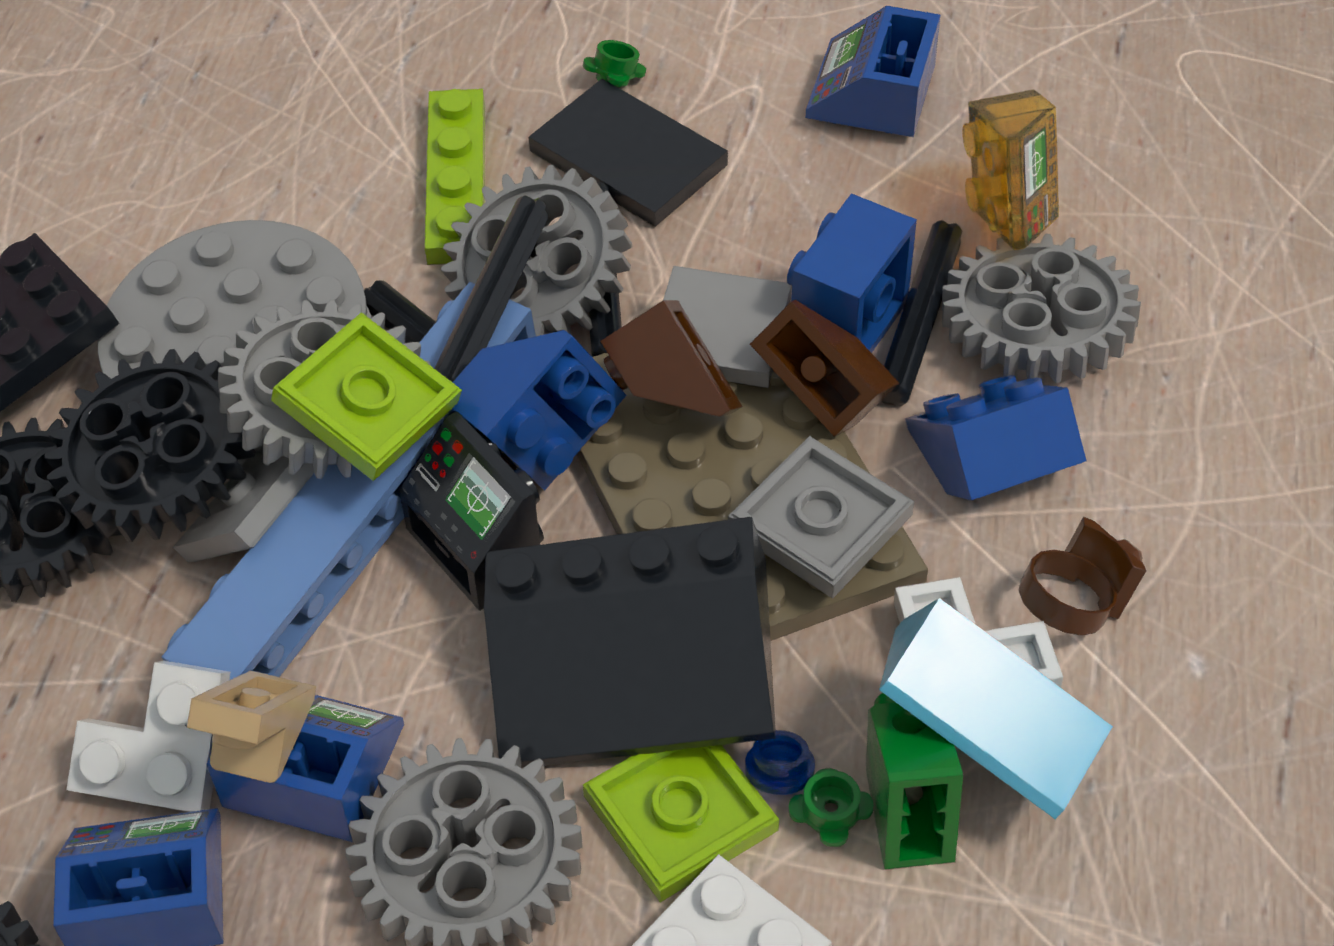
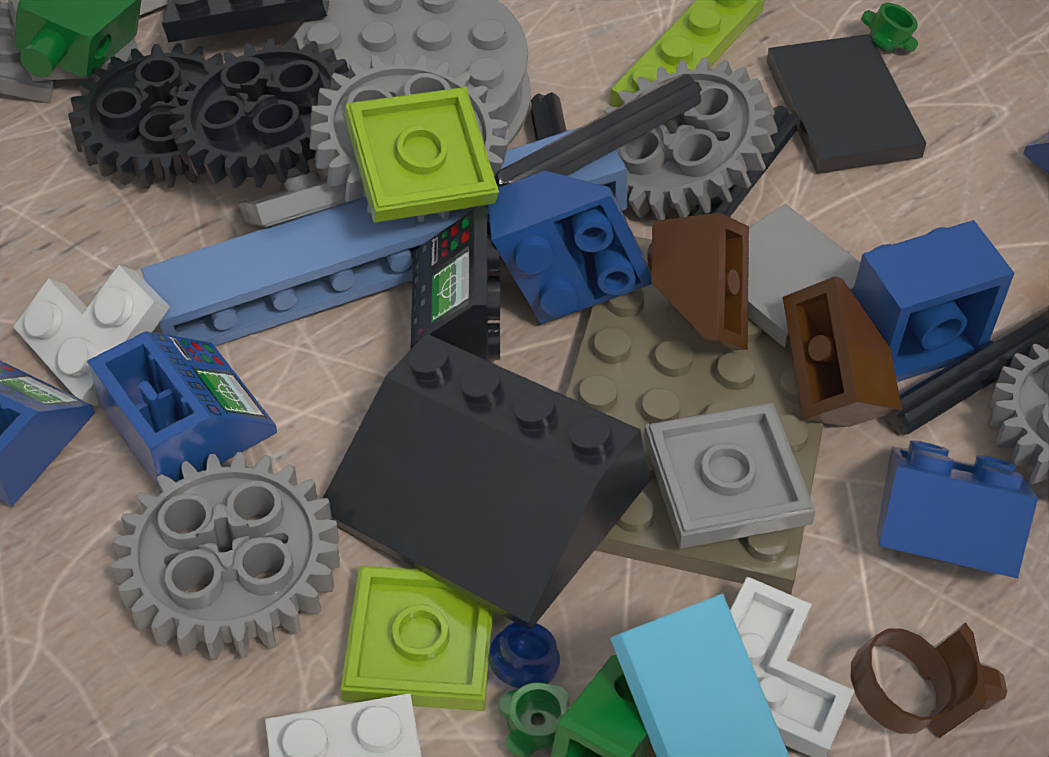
camera: 35 degrees right, 0 degrees up
(252, 723) = (131, 344): tan slope -> none

